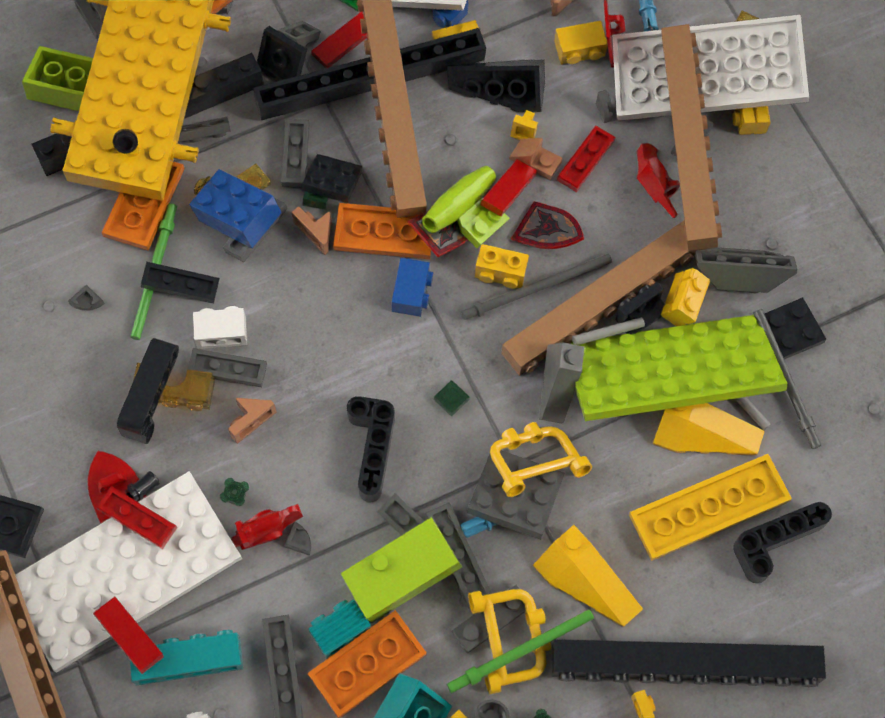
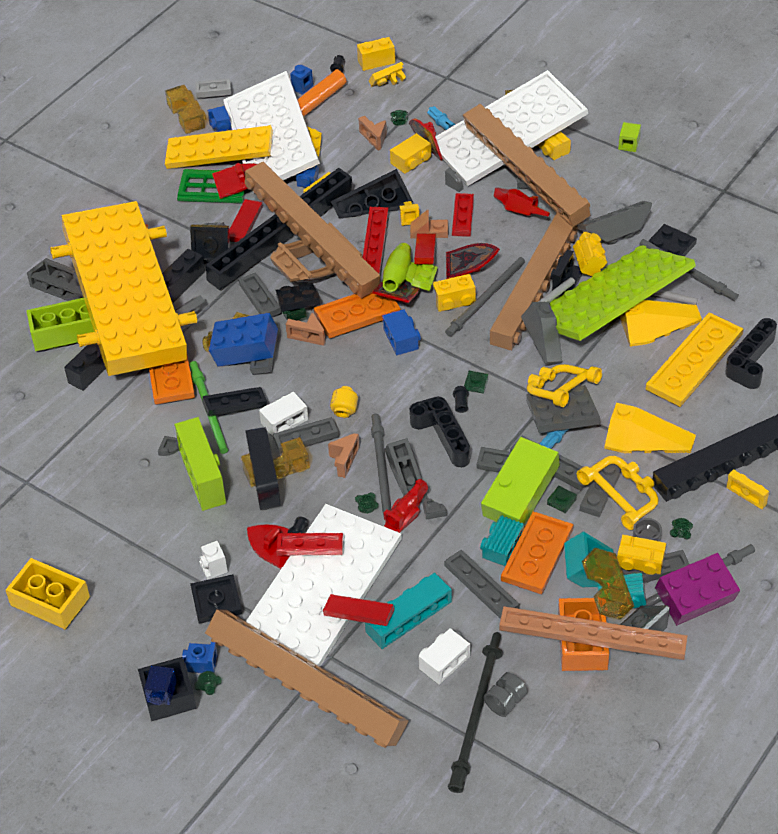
camera: 25 degrees left, 20 degrees down
(33, 476) = (213, 560): none -> white brick
(90, 348) = (200, 463): none -> lime brick
(125, 141) = (144, 320): black plate -> none
(292, 347) = (344, 402): none -> yellow head
(298, 473) = (403, 464): none -> dark grey slope
(303, 406) = (377, 433): none -> dark grey bar
(346, 136) = (286, 261): none -> medium nougat wedge
(418, 413) = (460, 394): none -> black pin
(440, 608) = (561, 499): none -> clear green plate
(461, 149) = (375, 237): none -> red plate
(474, 675) = (617, 515): bright green bar -> none
(845, 151) = (629, 137): none -> lime brick

